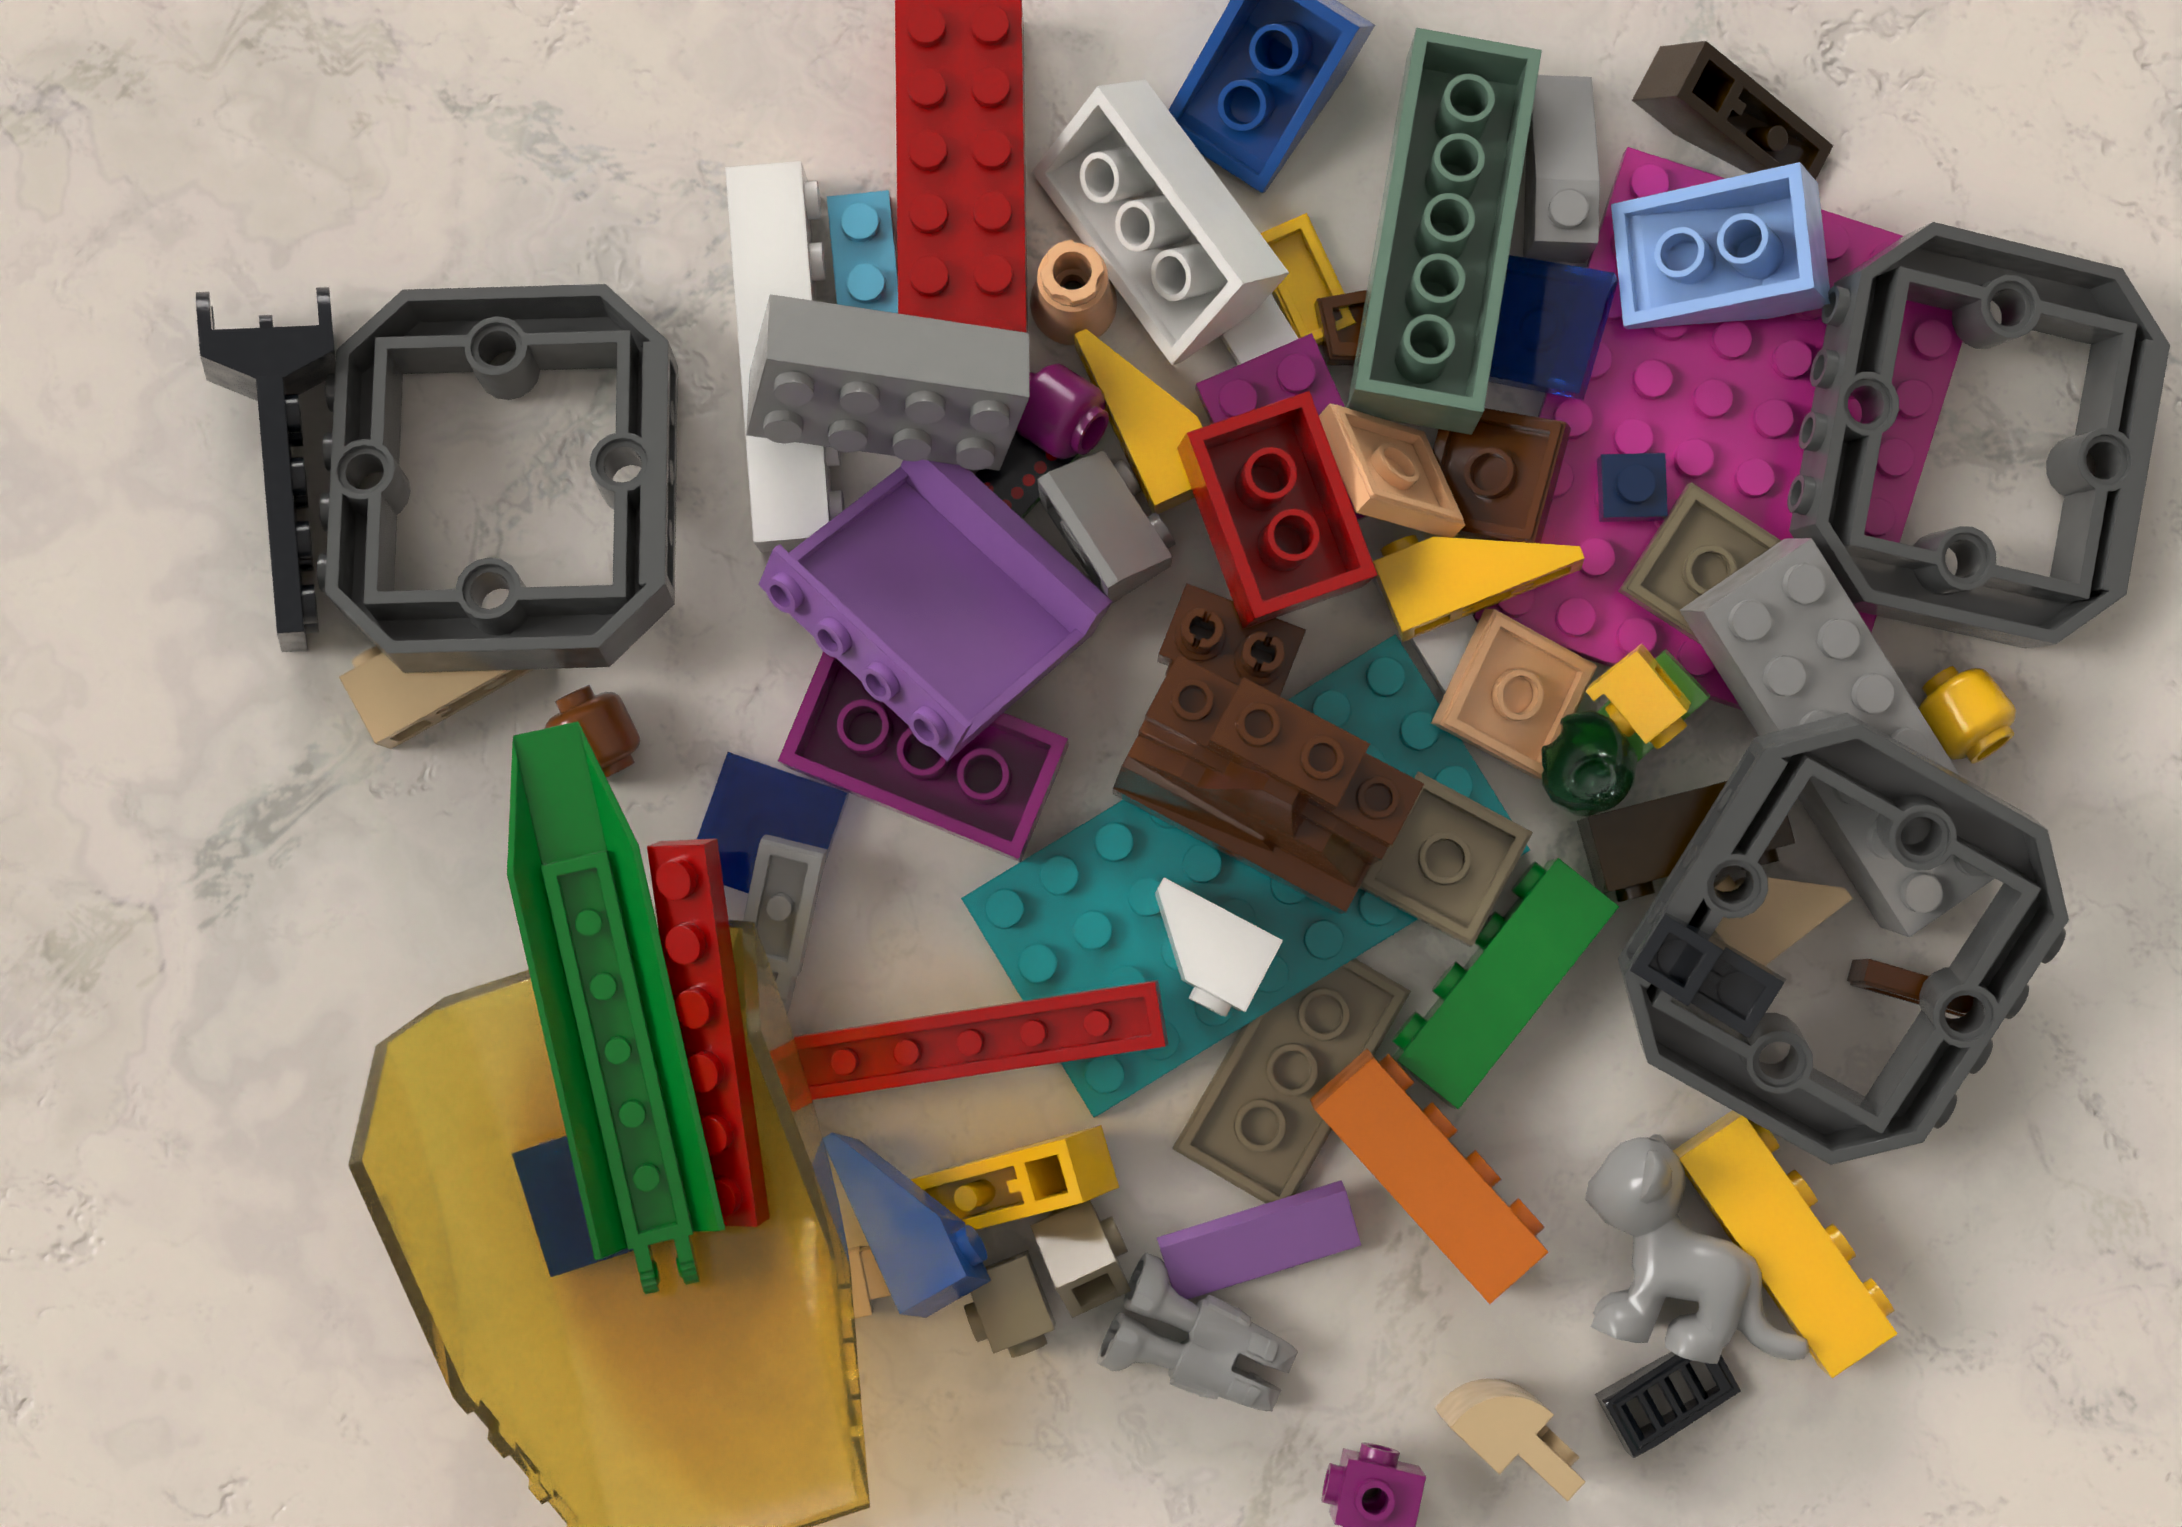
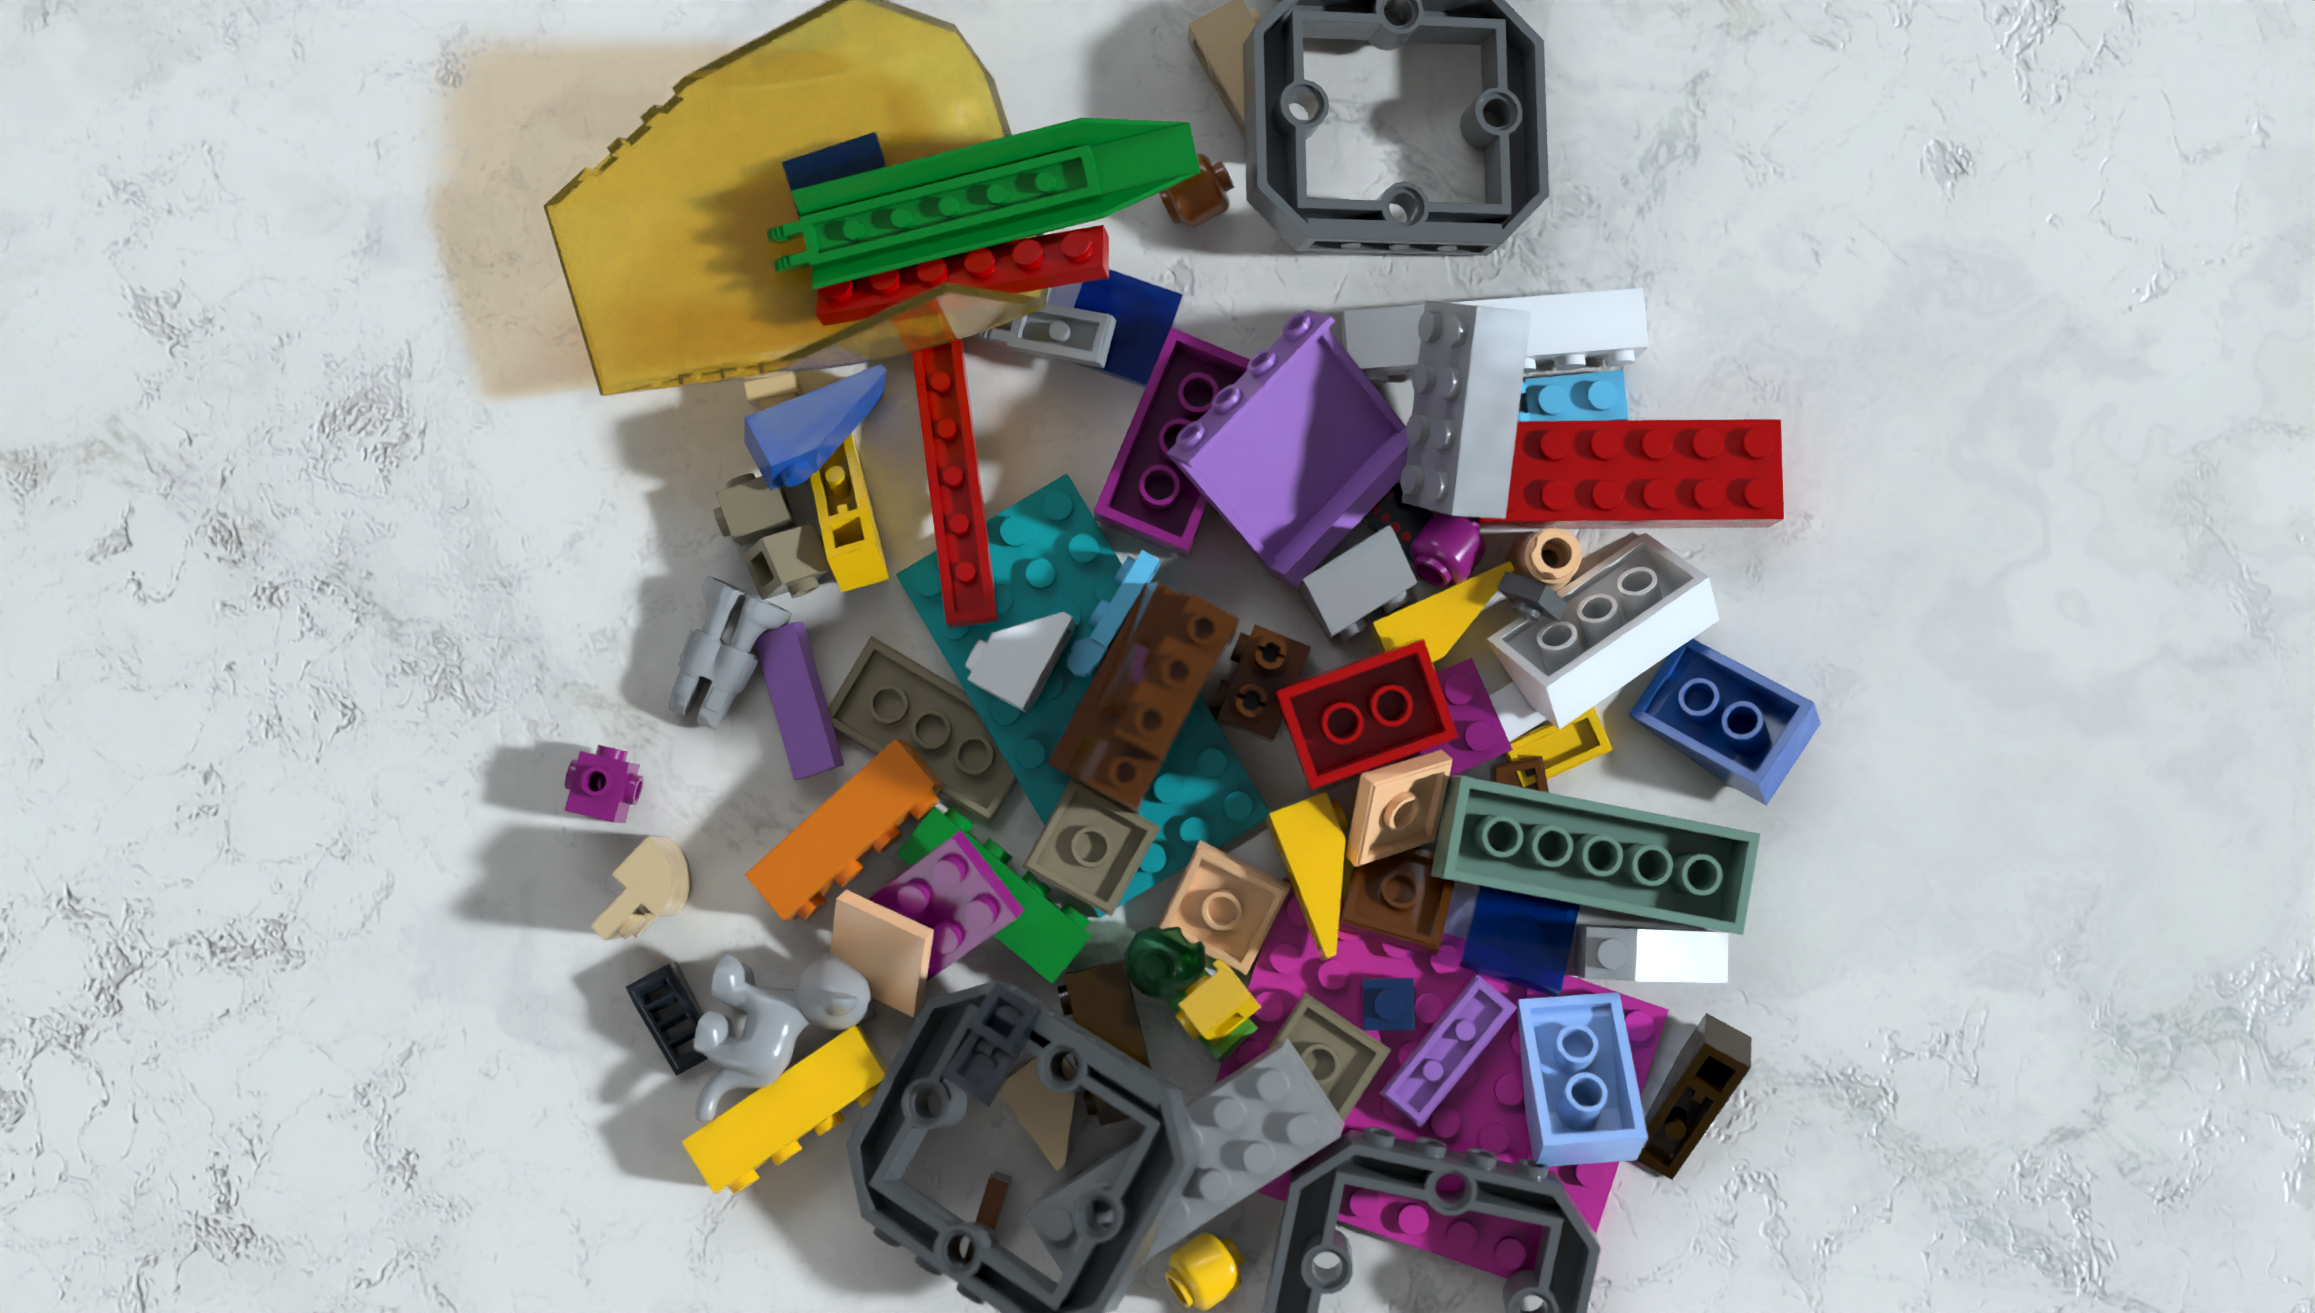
camera: 90 degrees right, 0 degrees up
(1123, 306) = (1531, 598): none -> dark grey plate
(1152, 835) = (1109, 617): none -> medium azure hinge
(1530, 1054) = (954, 896): none -> magenta plate
(1580, 1121) = (885, 949): none -> light nougat tile
(1687, 413) = (1448, 1050): none -> medium lavender tile

